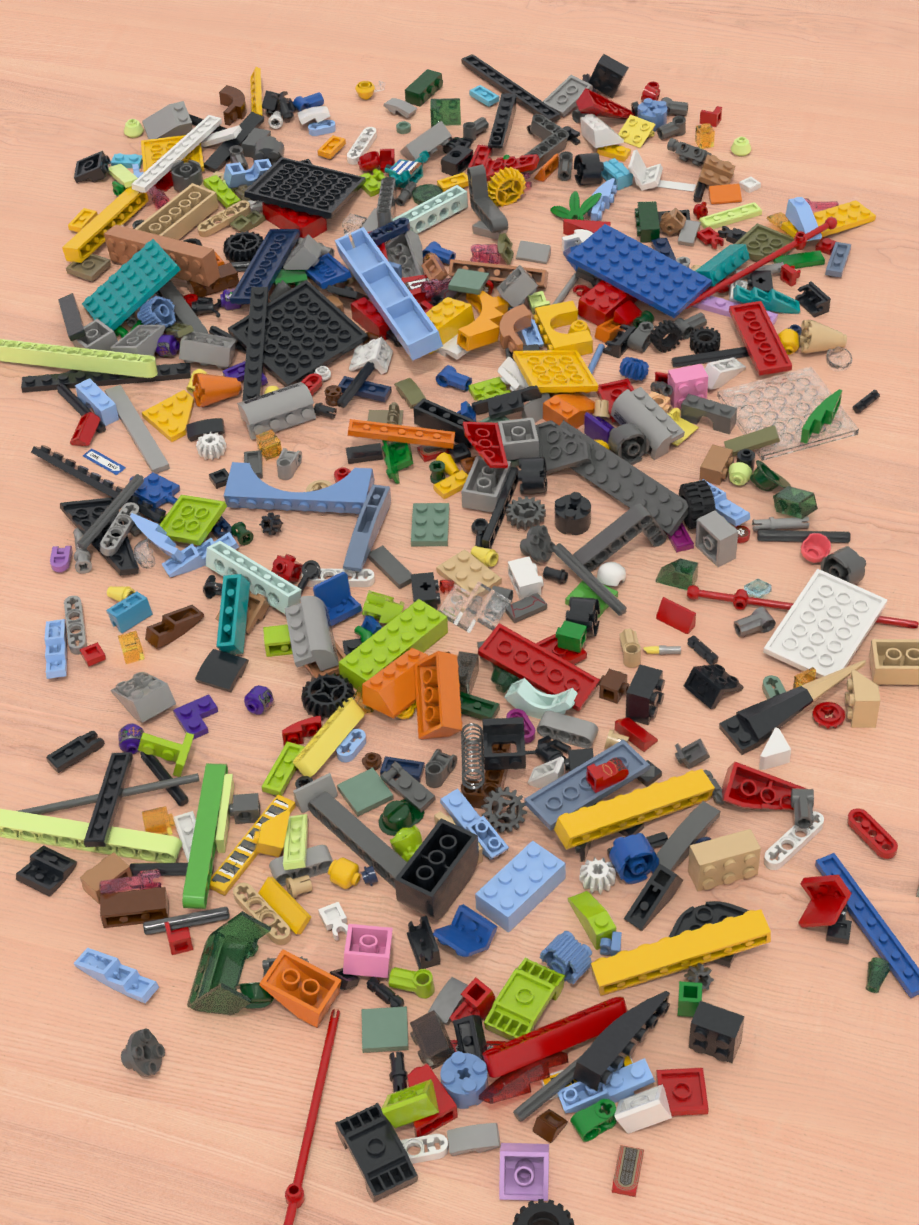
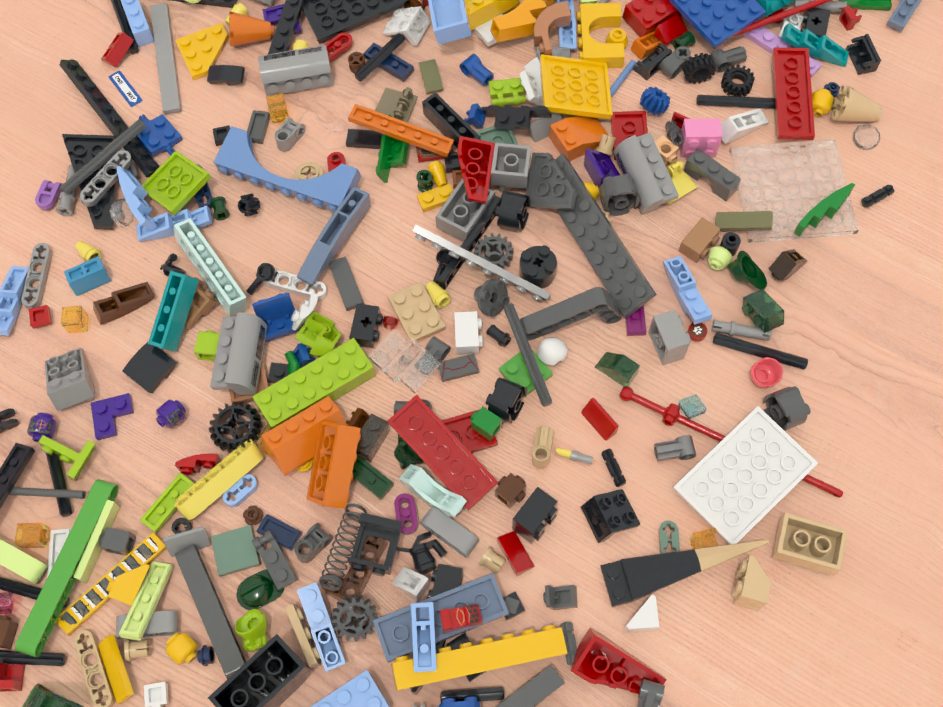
camera: 15 degrees right, 20 degrees up
(211, 446) = (224, 96): white gear -> none
(287, 567) = (245, 263): red brick -> none
(323, 410) = (342, 78): black pin -> none
(324, 372) = (356, 32): white plate -> none
(360, 591) = (304, 311): none -> white slope
(430, 524) = (398, 241): sand green plate -> none
(515, 516) = (473, 260): none -> light grey plate
(577, 787) = (423, 636): none -> light blue slope
(699, 501) = (663, 290): black tyre -> none
(803, 466) = (787, 264): none -> dark brown slope
(827, 709) = (723, 588): red gear -> none

